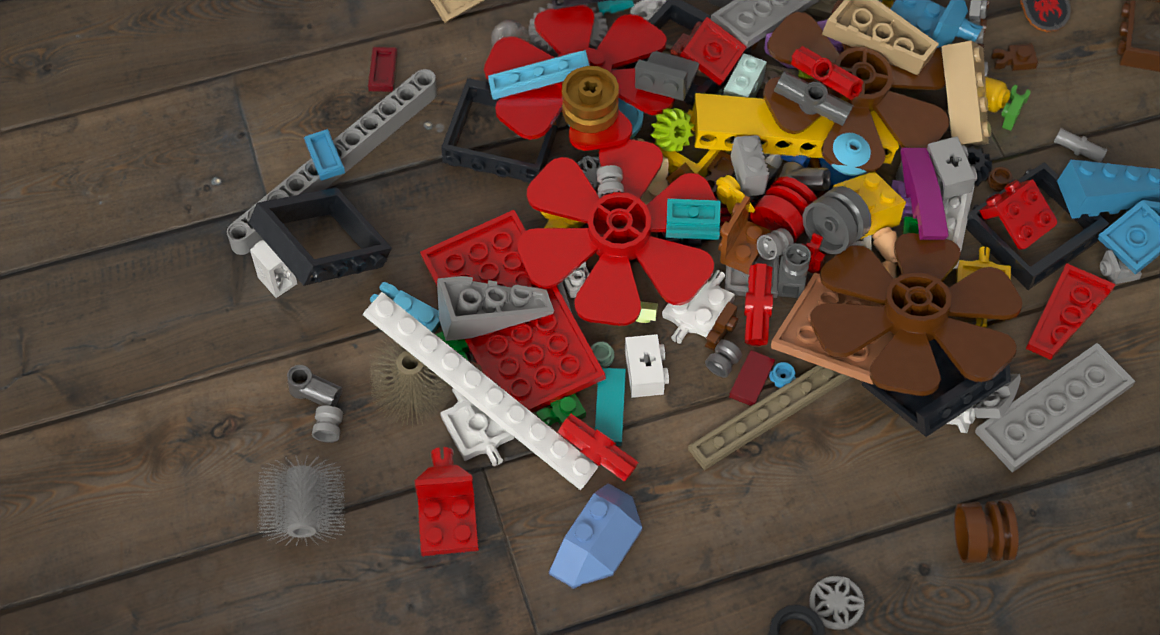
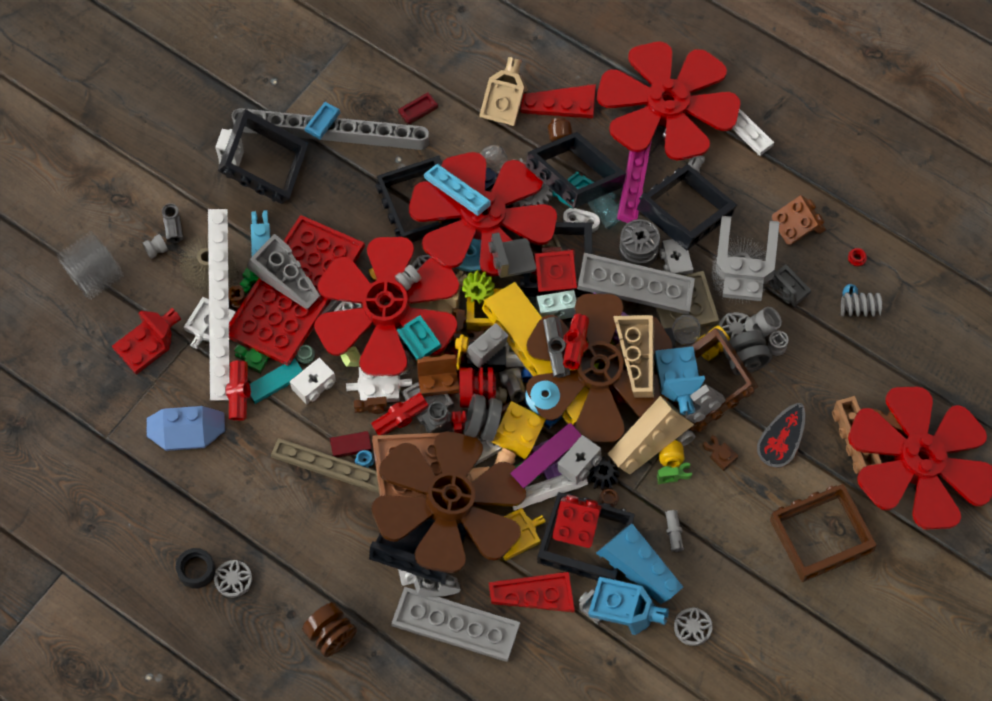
camera: 55 degrees right, 5 degrees up
(590, 99) = (453, 226): pearl gold wheel -> none
(721, 361) = (354, 419): flat silver wheel -> none
(774, 243) = (447, 396): light grey wheel -> none

